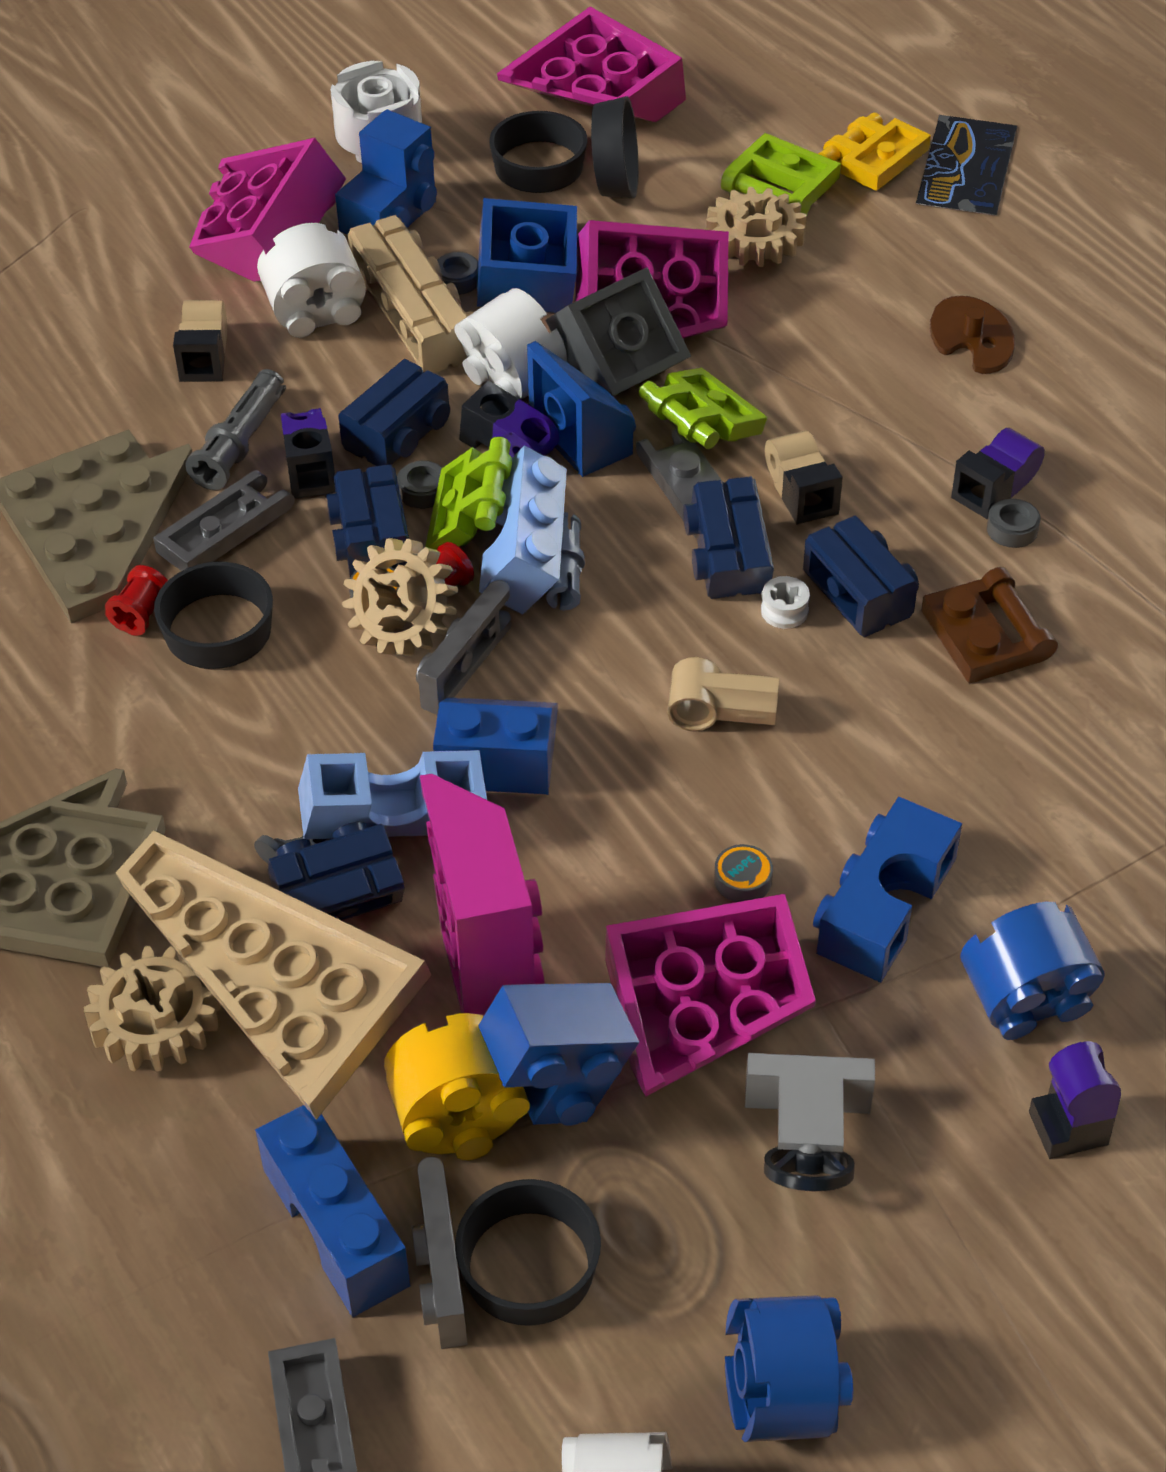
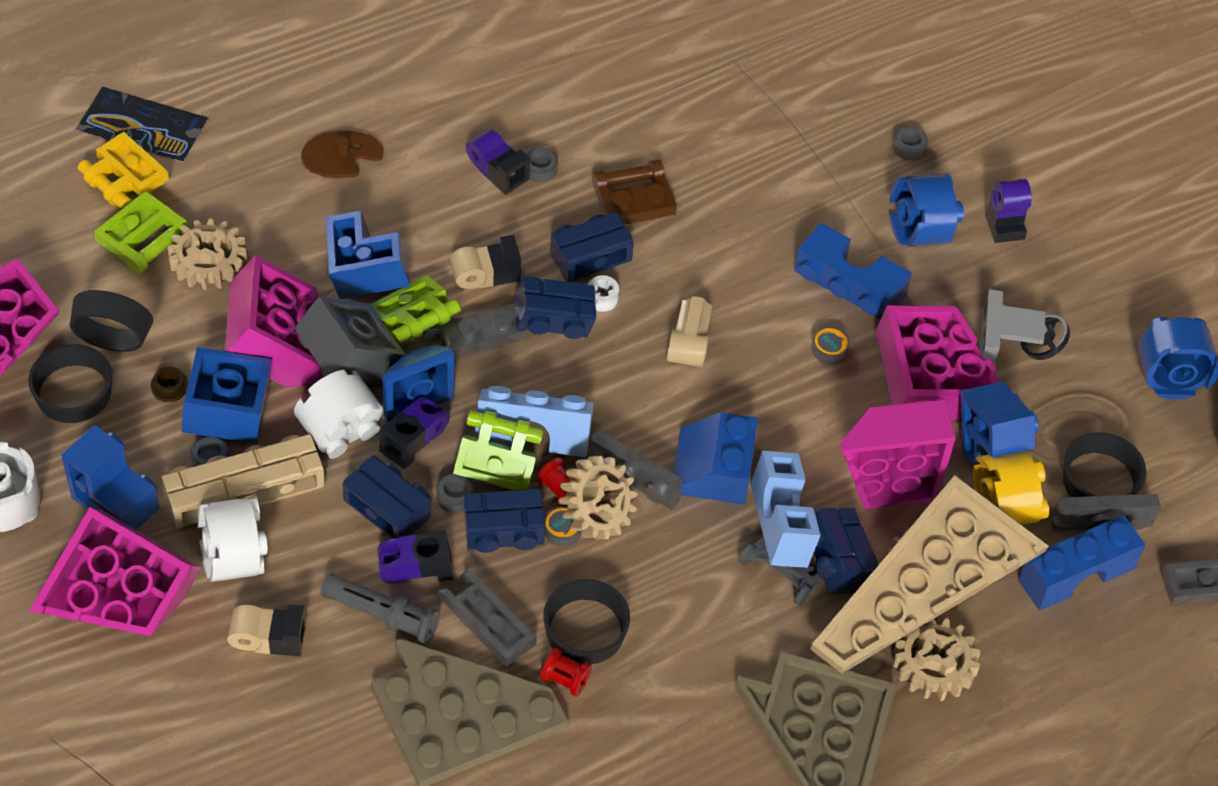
camera: 90 degrees left, 5 degrees up
(770, 339) = (363, 262): none -> blue brick

